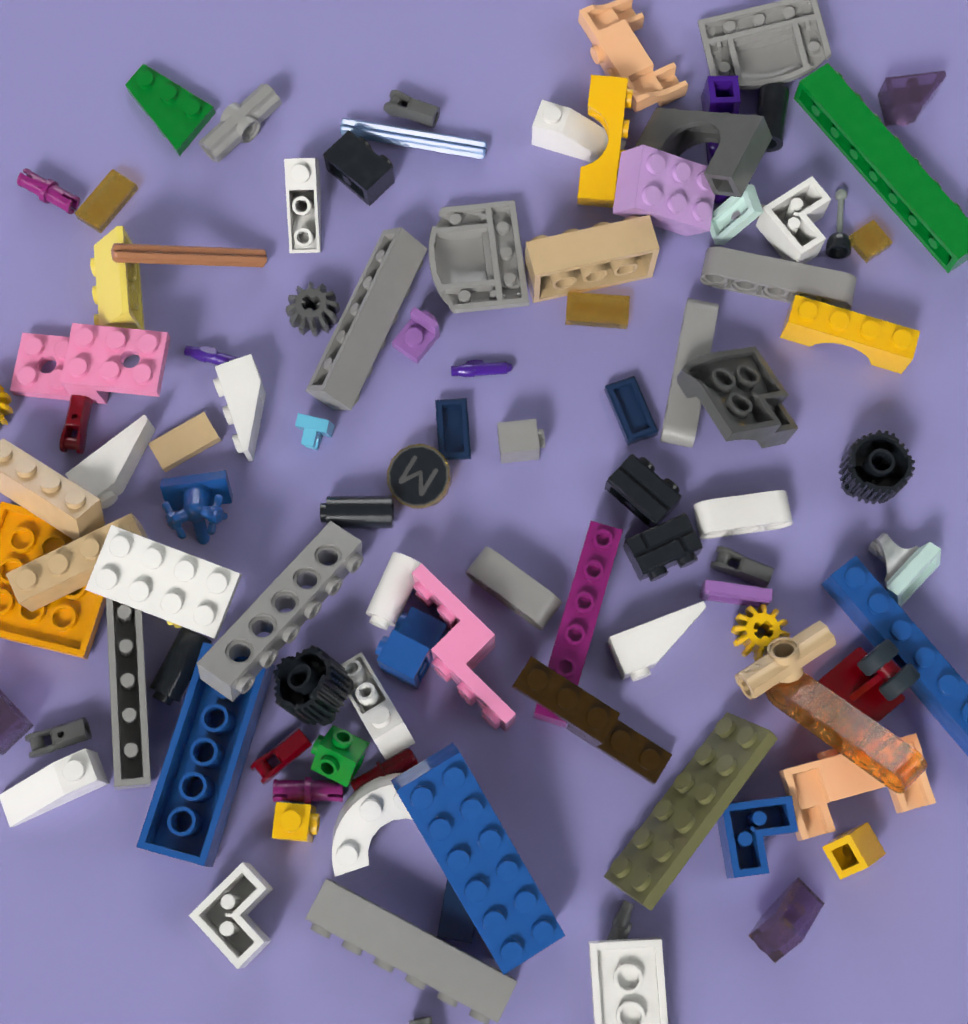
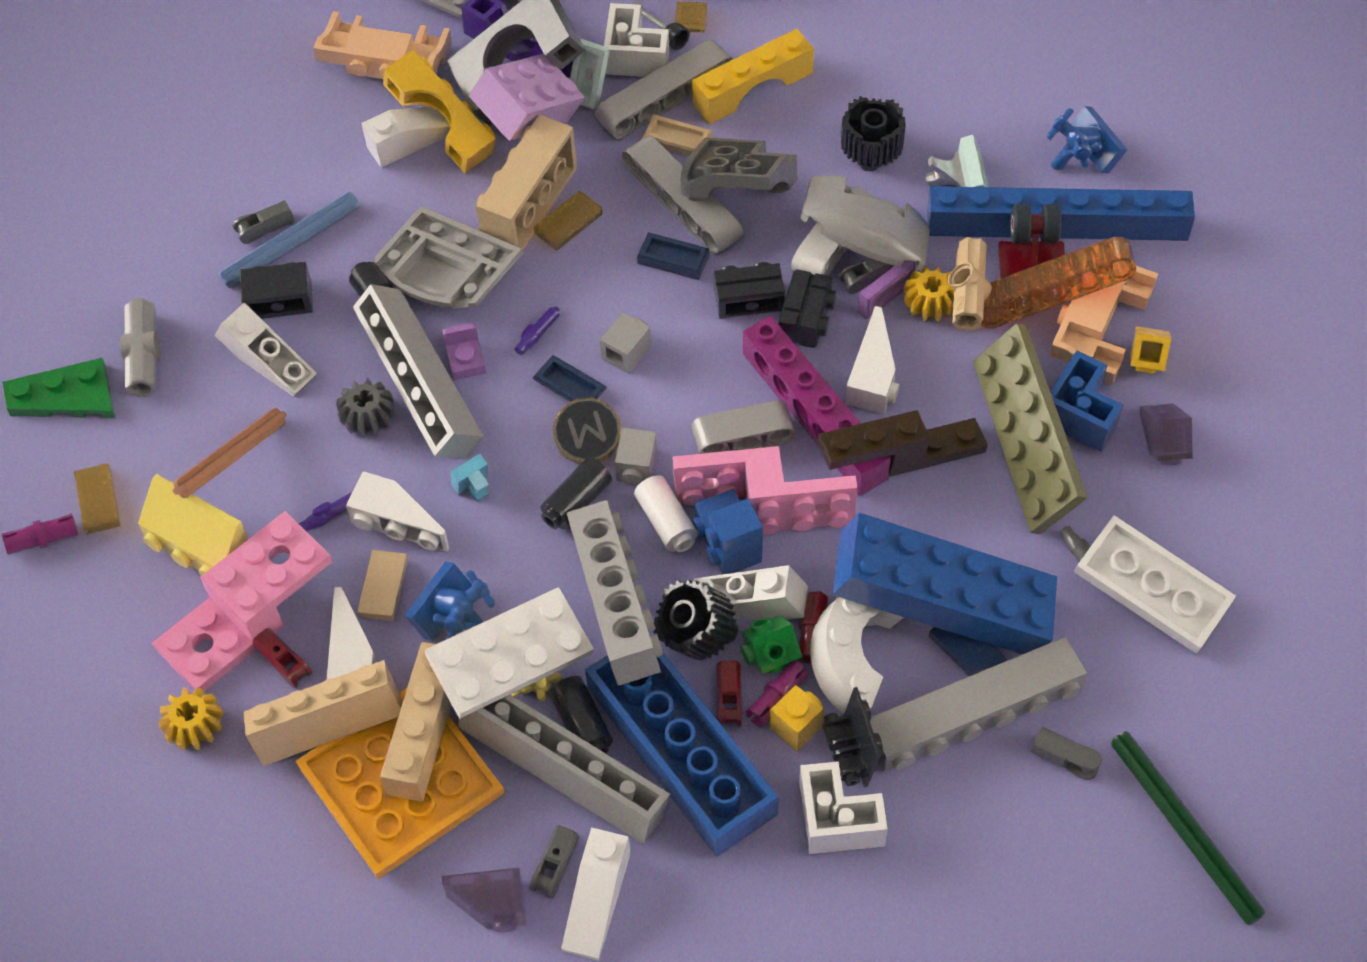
camera: 50 degrees left, 15 degrees down
(297, 899) = (853, 741): none -> black hinge
(419, 221) = (365, 274): none -> black brick
(424, 529) = (635, 455): none -> light grey brick
(744, 322) = (676, 135): none -> tan tile
(772, 535) = (866, 223): none -> light grey slope

